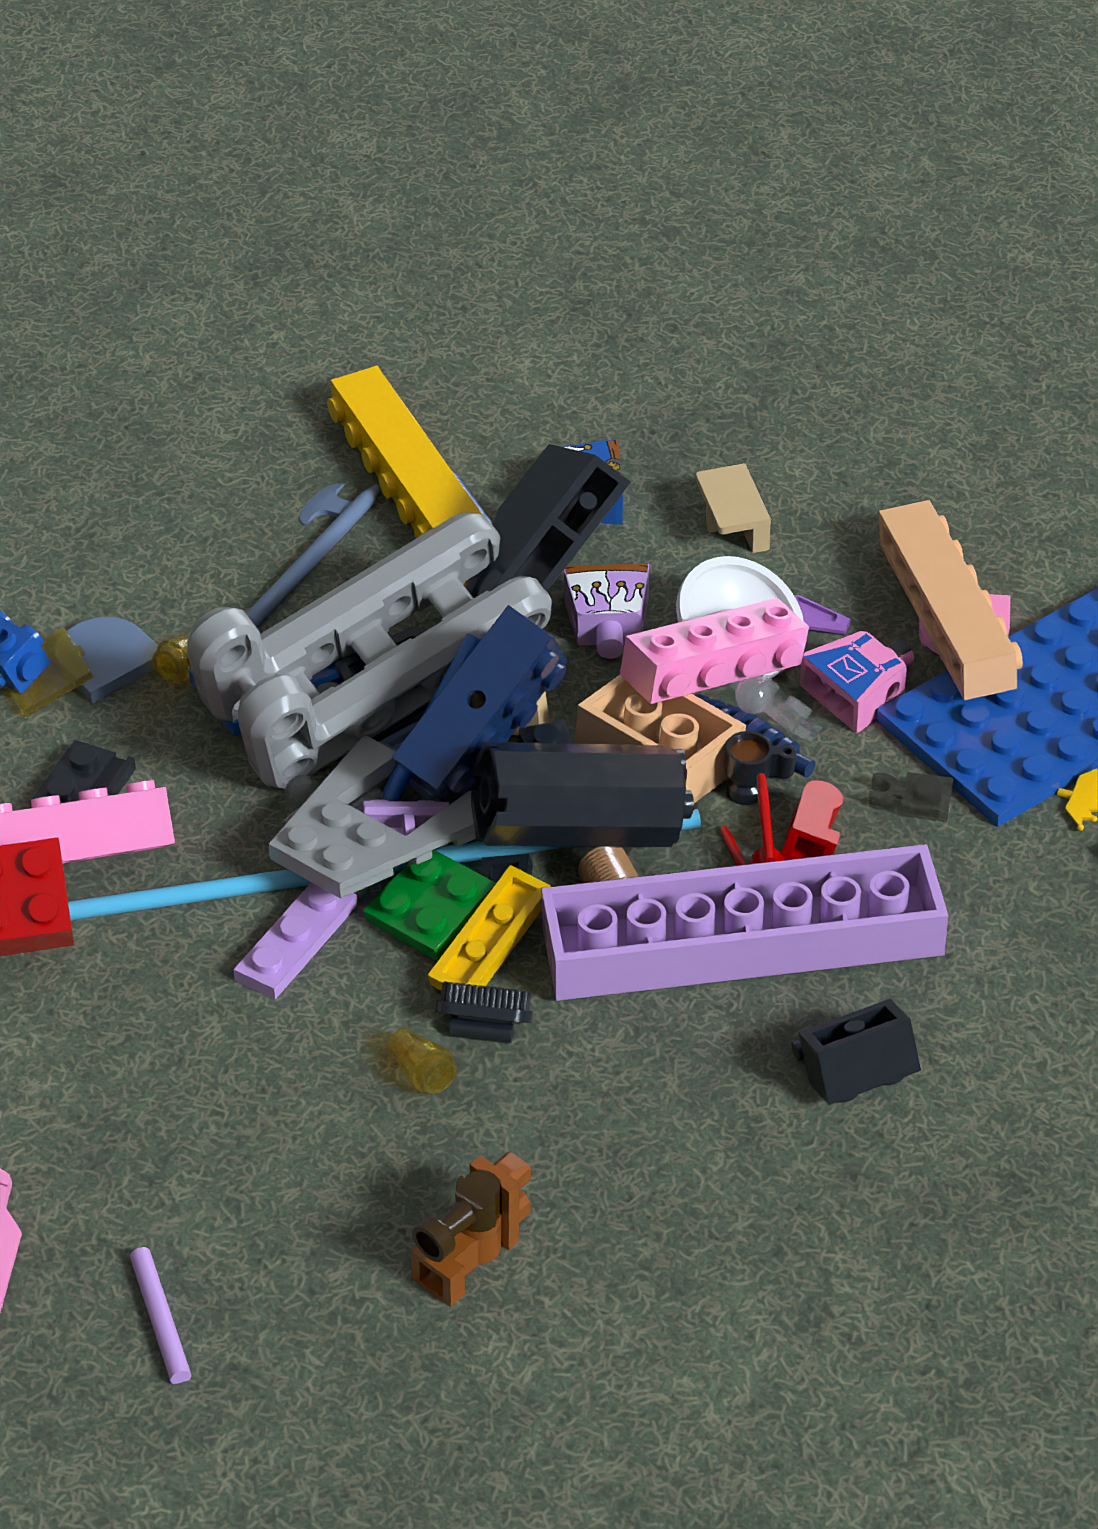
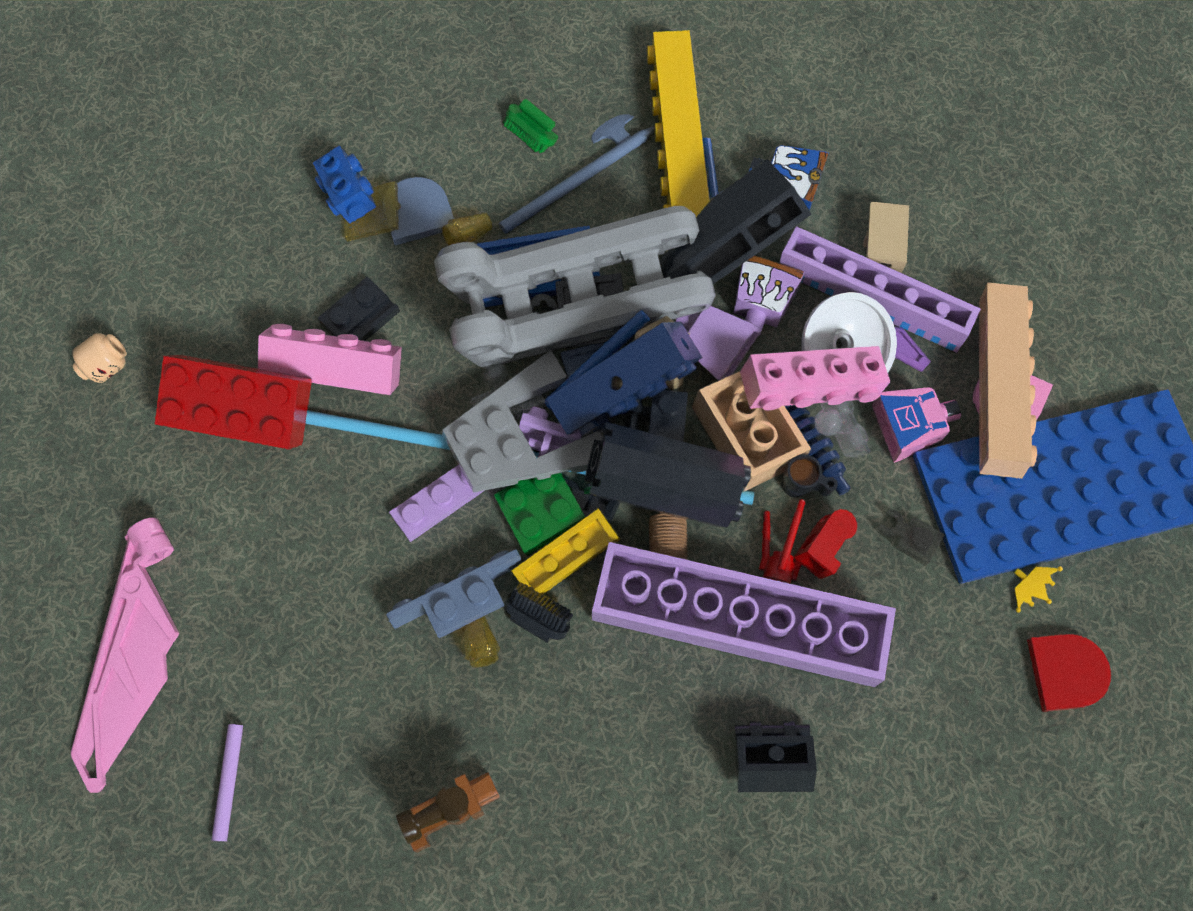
camera: 20 degrees right, 25 degrees up
(213, 526) = (531, 125): none -> green piece
(371, 1022) = (461, 600): none -> sand blue bracket
(592, 657) = (720, 339): none -> lavender torso
(804, 558) = (906, 300): none -> lavender brick

